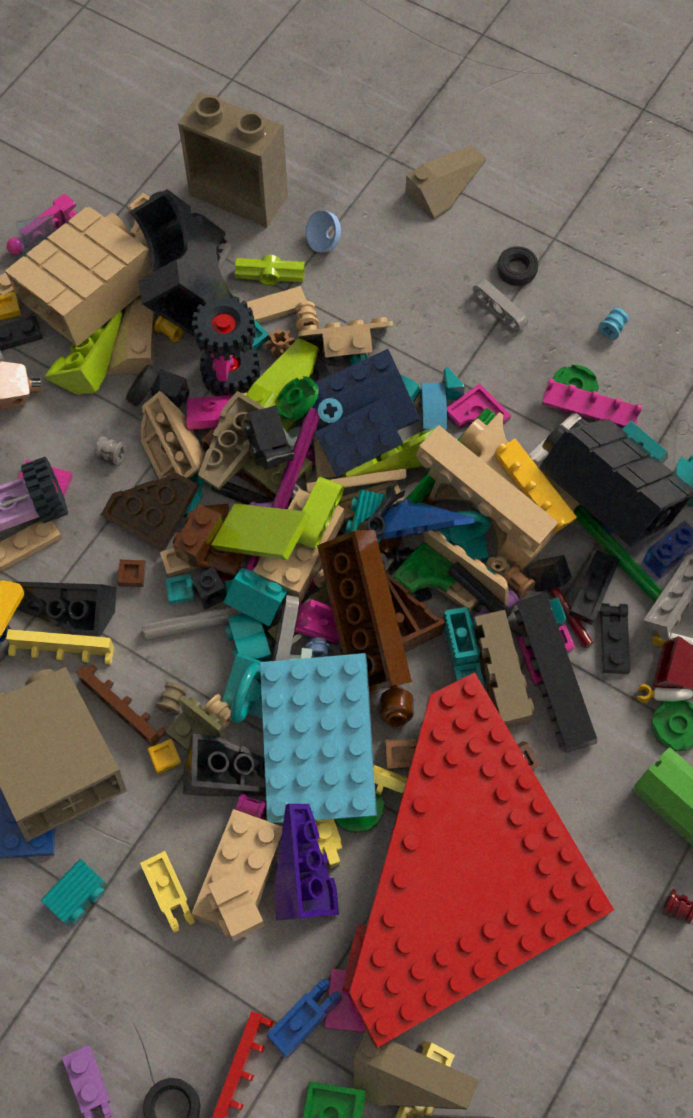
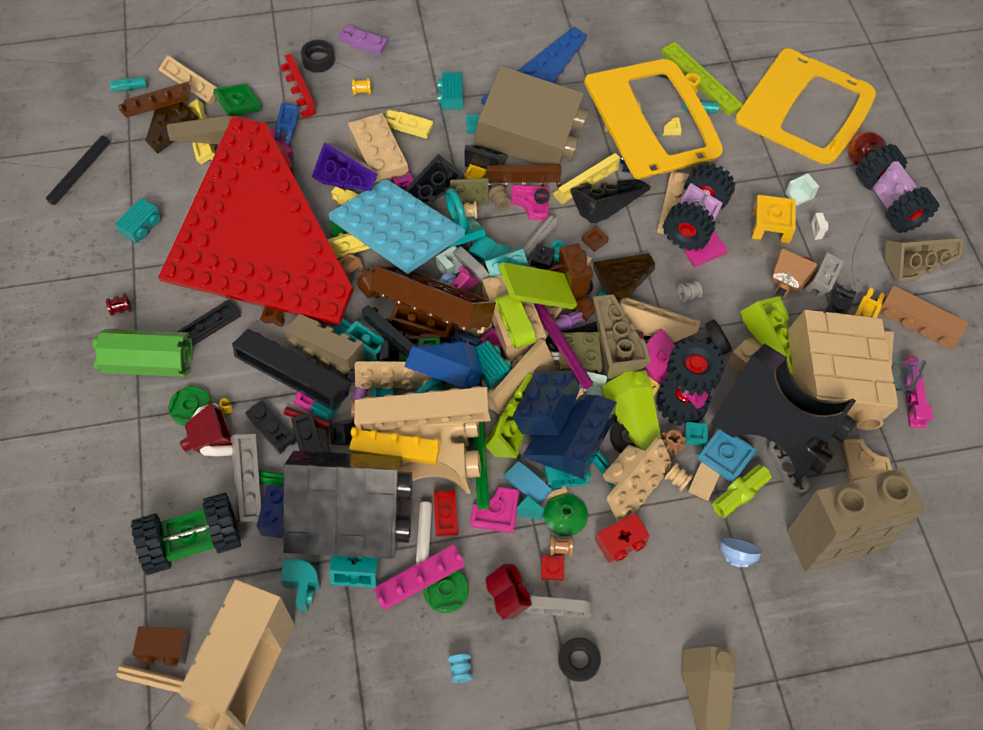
camera: 135 degrees right, 5 degrees down
(96, 822) = (471, 123): none -> teal plate
(133, 654) = (542, 200): none -> black hinge
(133, 763) = (483, 156): none -> black slope
(138, 673) = (524, 197): none -> dark pink tile
(167, 999) = (361, 86): none -> yellow bush
(235, 905) = (359, 121): tan brick -> none
(257, 295) = (726, 455): none -> dark azure tile
(266, 437) = (595, 340): black hinge -> none
(297, 398) = (609, 388): green tile -> none
(323, 406) = (579, 396): medium azure bush -> none
(376, 521) = (479, 346): black brick -> none
(403, 309) = (628, 528): none -> red brick
(423, 373) = (565, 524): none -> green dish
(437, 602) = (383, 327): none -> black hinge
(454, 342) = (561, 545): none -> medium nougat bush
(455, 596) = (388, 352): none -> black plate
(474, 337) = (552, 567): none -> red plate
(528, 432) = (445, 513): none -> red plate
(530, 338) = (508, 591): none -> dark red brick
(585, 1013) = (138, 220): none -> teal brick
(596, 806) = (211, 322): none -> black tile

